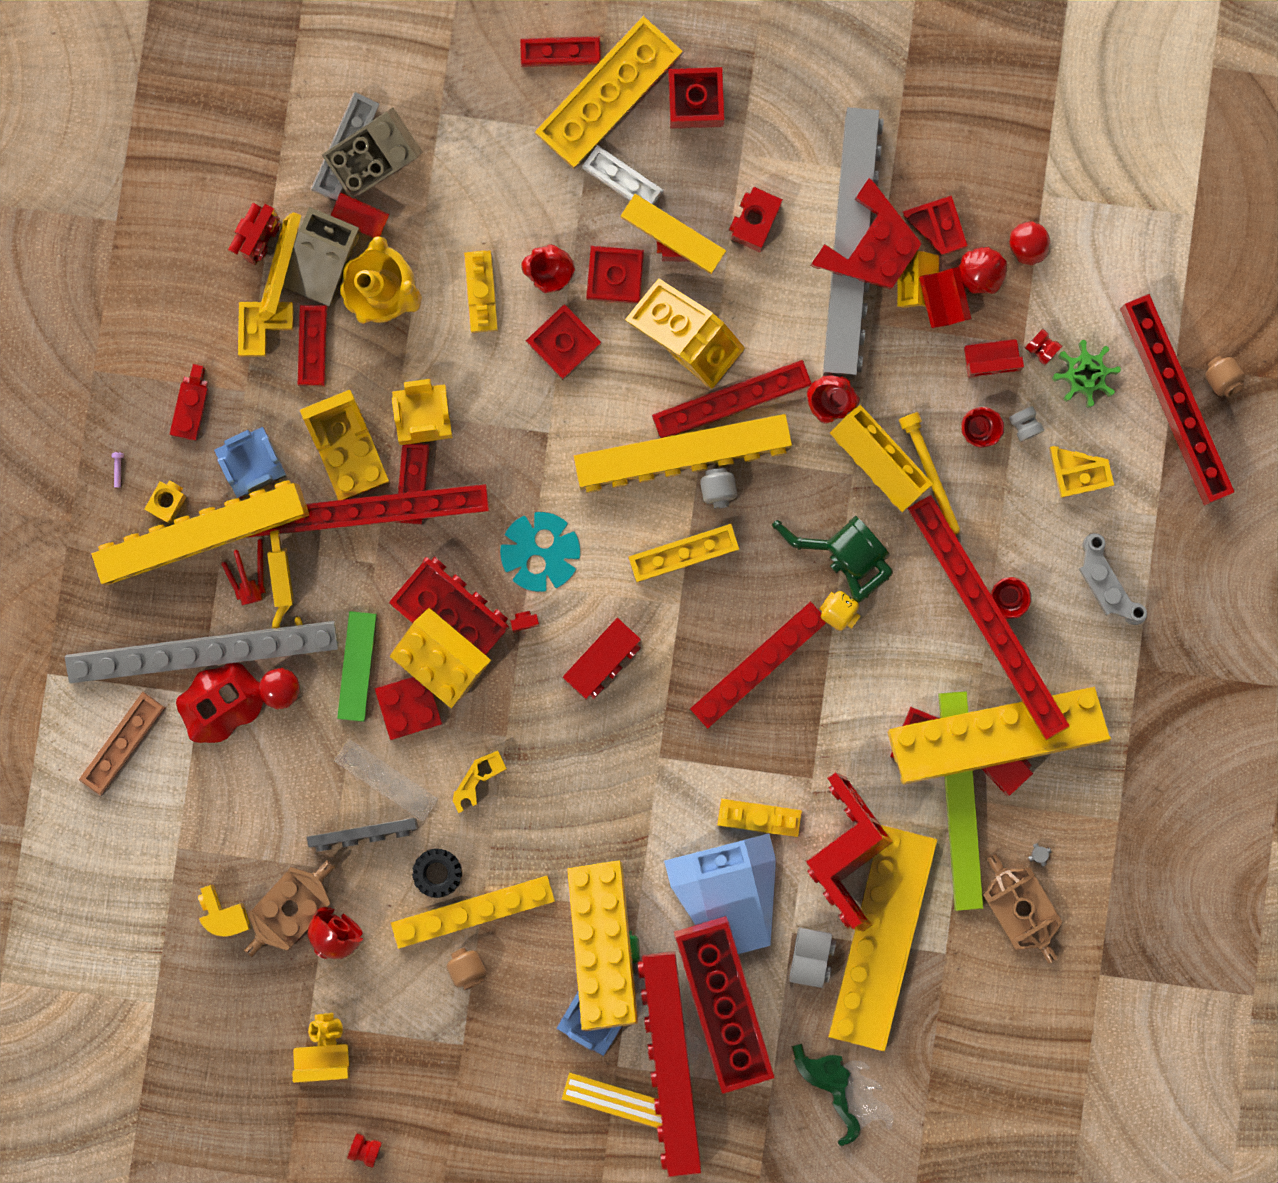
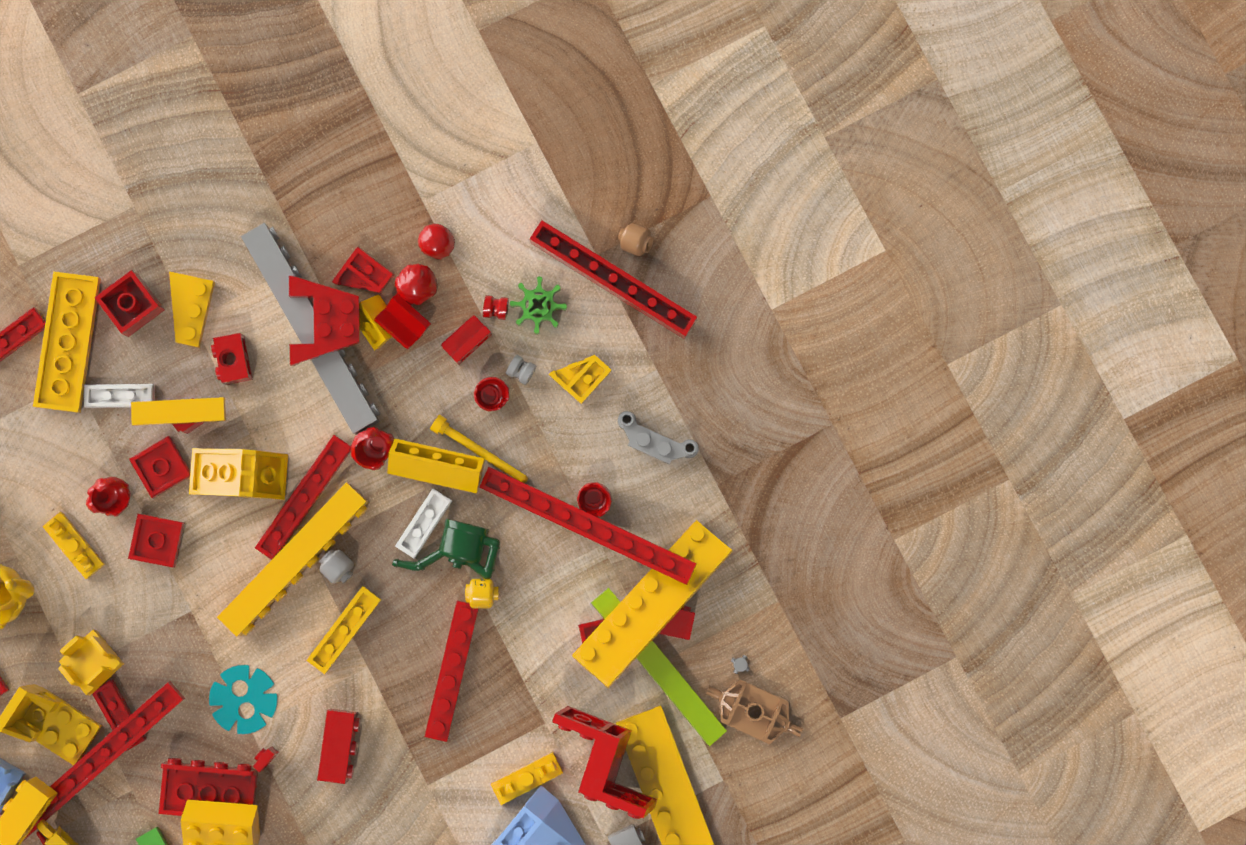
camera: 30 degrees left, 0 degrees up
(749, 141) = (190, 307): none -> yellow wing
(829, 505) = (423, 523): none -> white tile

